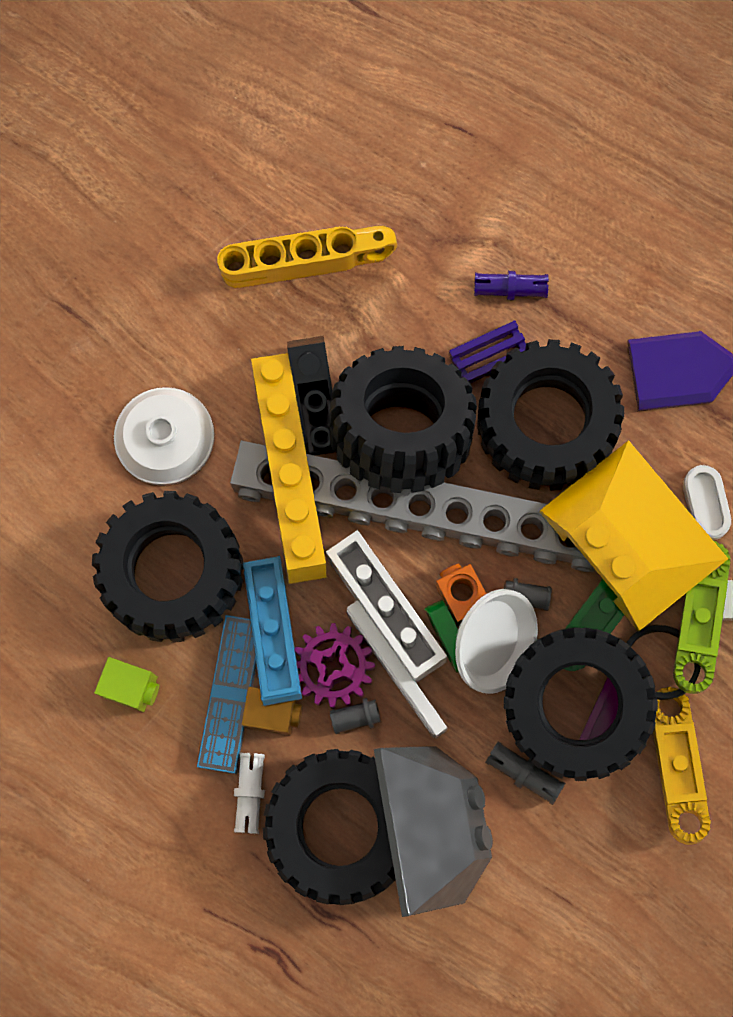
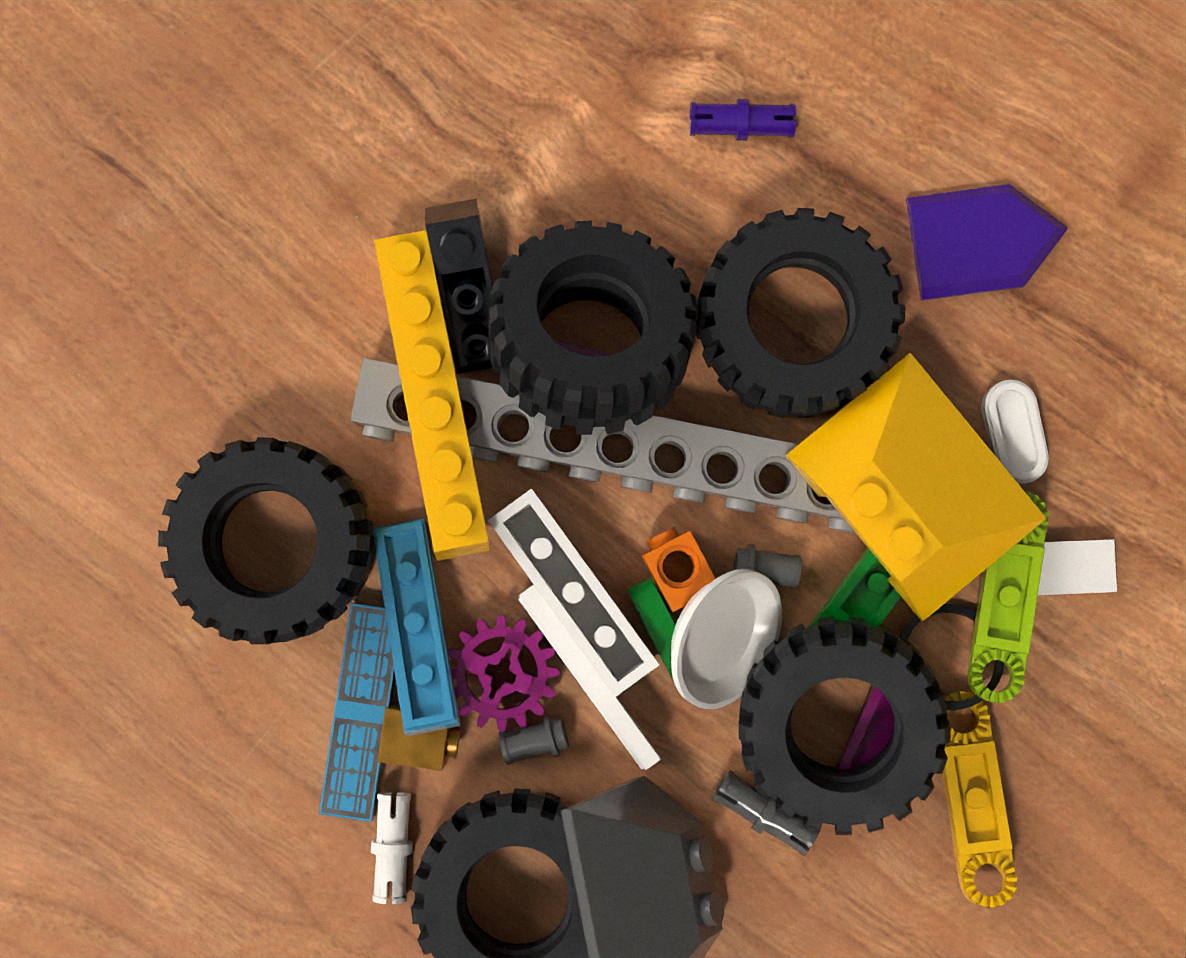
camera: 10 degrees left, 10 degrees up
(127, 685) = (218, 705): lime brick -> none
(164, 436) = (254, 346): white piece -> none
(291, 266) = (532, 59): yellow piece -> none
(482, 341) = (751, 199): dark purple tile -> none

